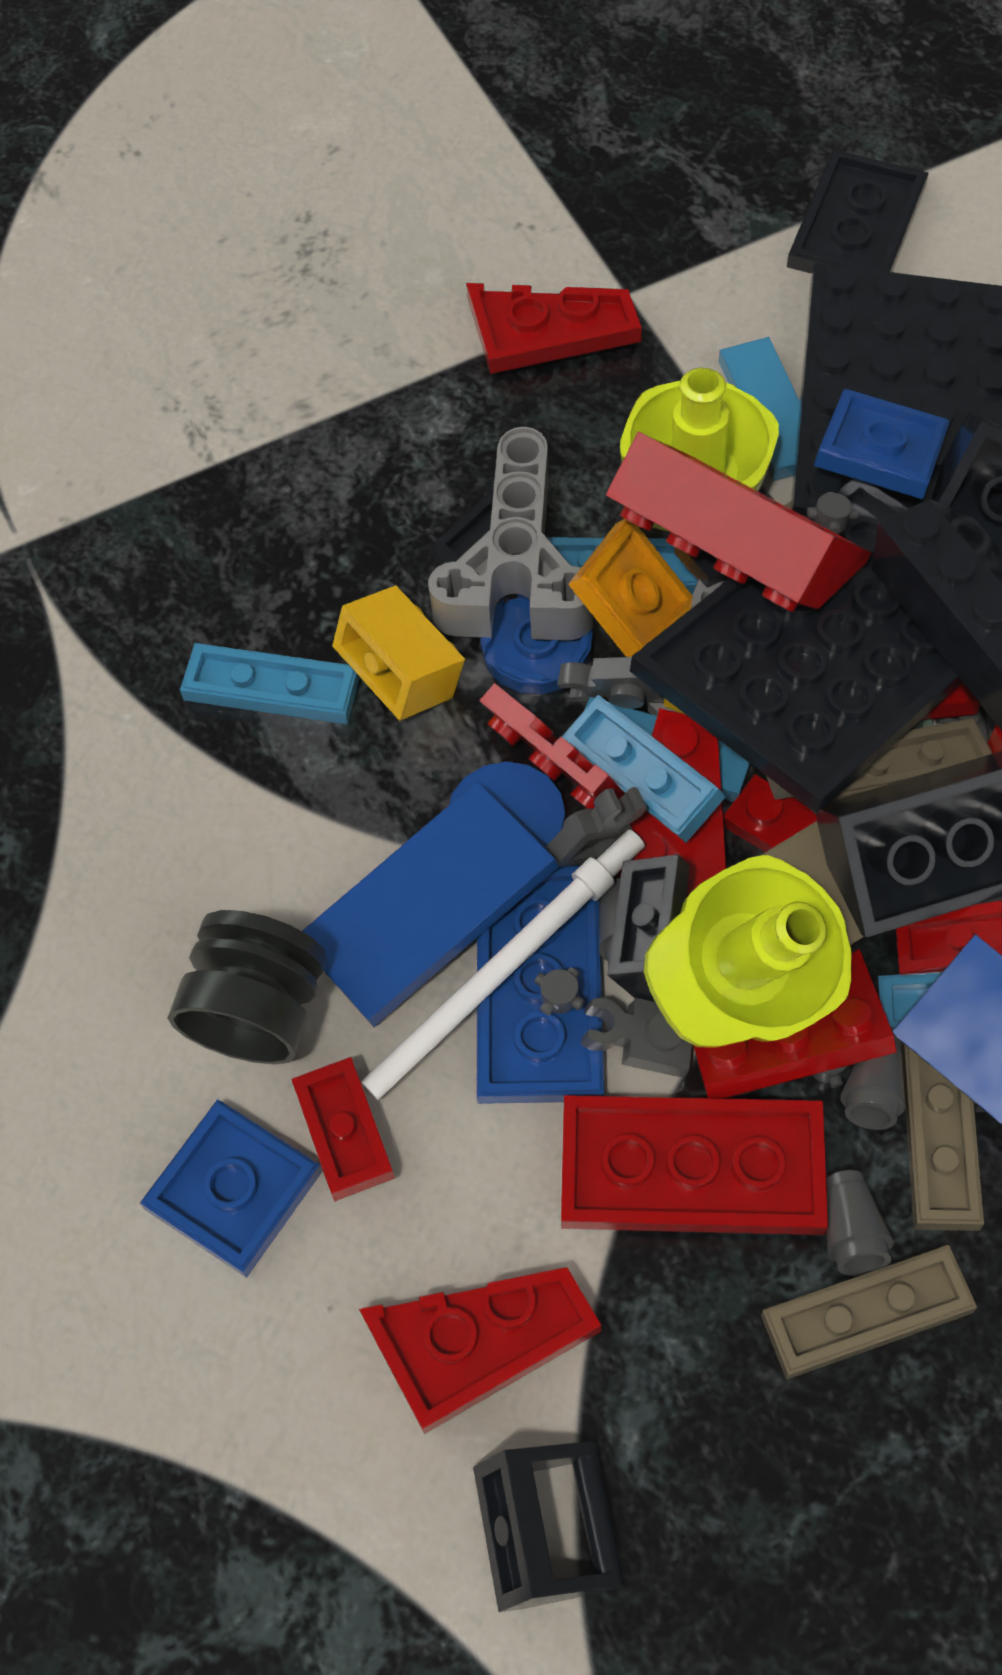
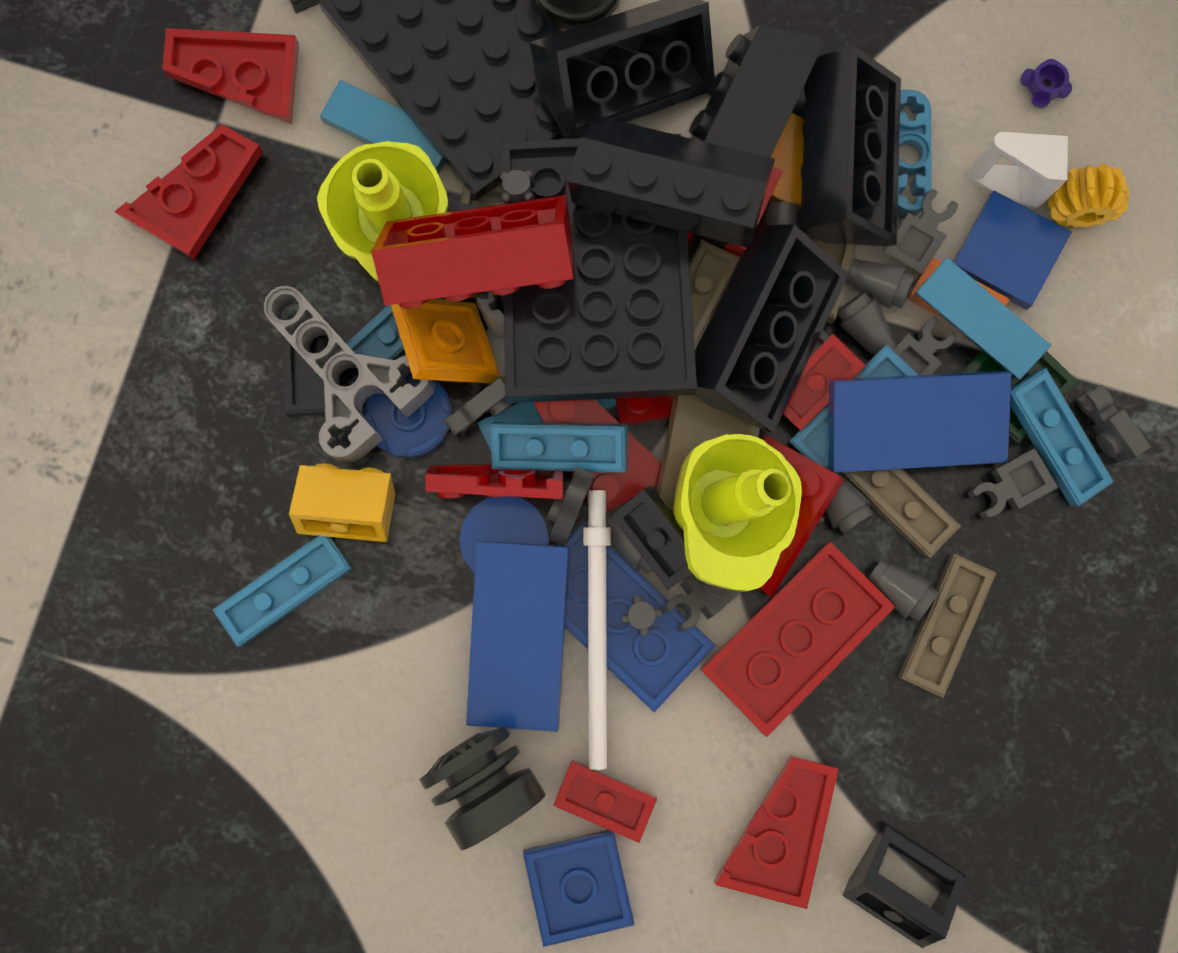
camera: 50 degrees left, 20 degrees up
(690, 262) = (237, 66): none -> red wing
(882, 443) = (493, 105): blue tile -> none

